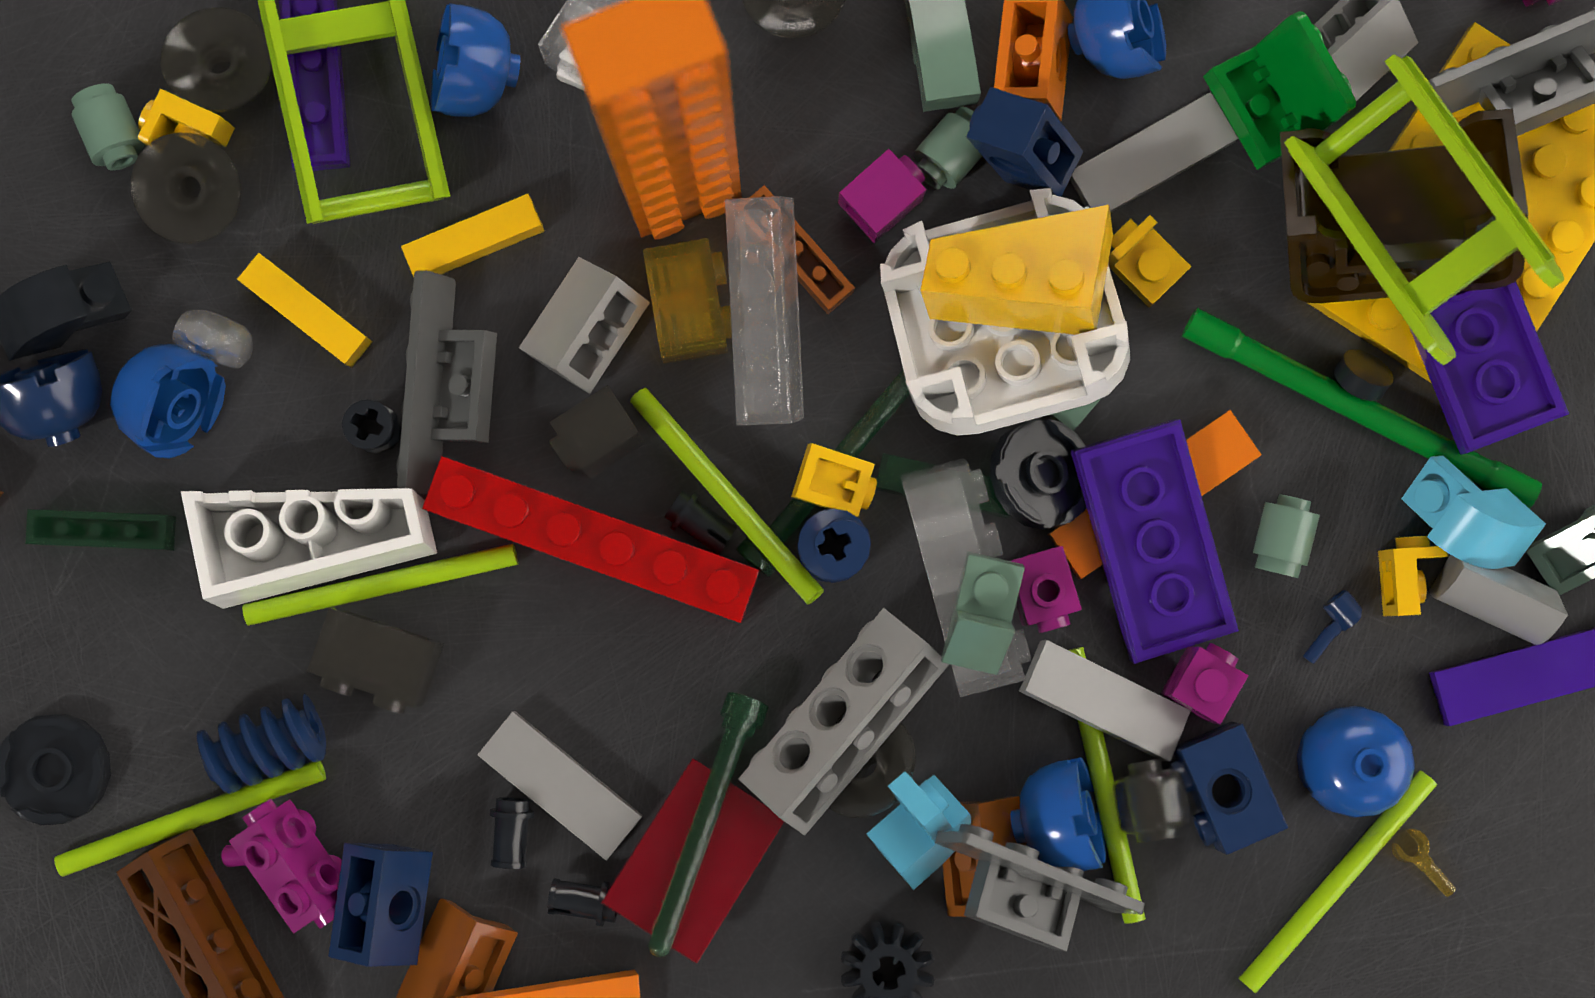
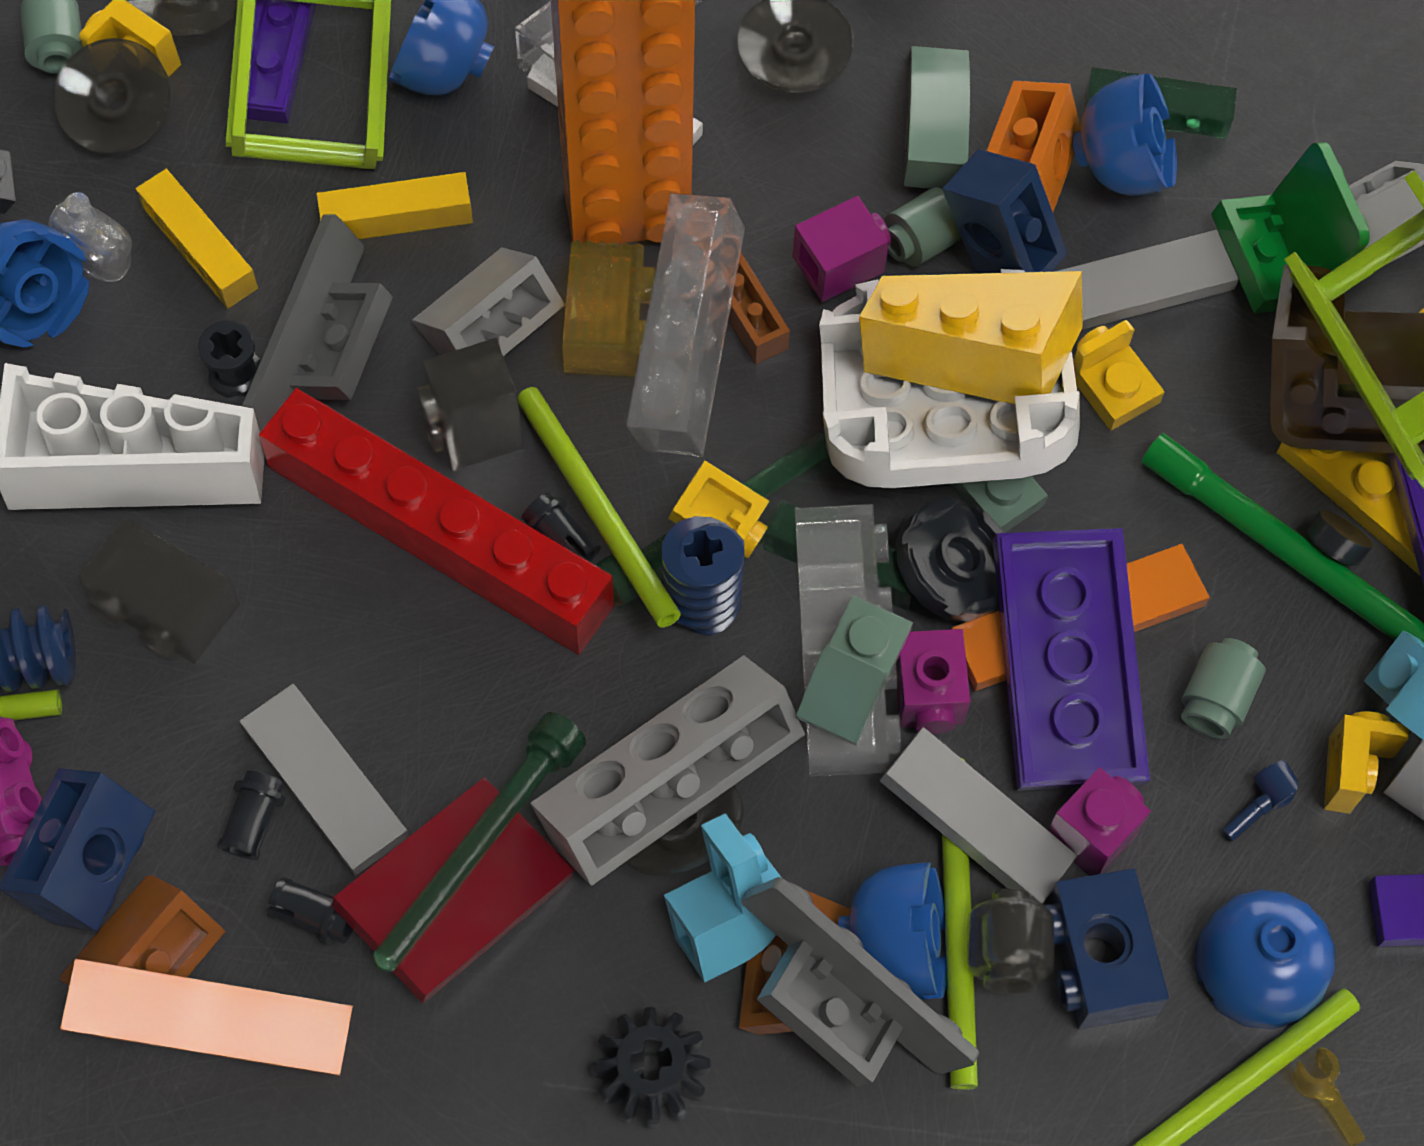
camera: 15 degrees right, 20 degrees down
(380, 584) = (192, 523): lime piece -> none

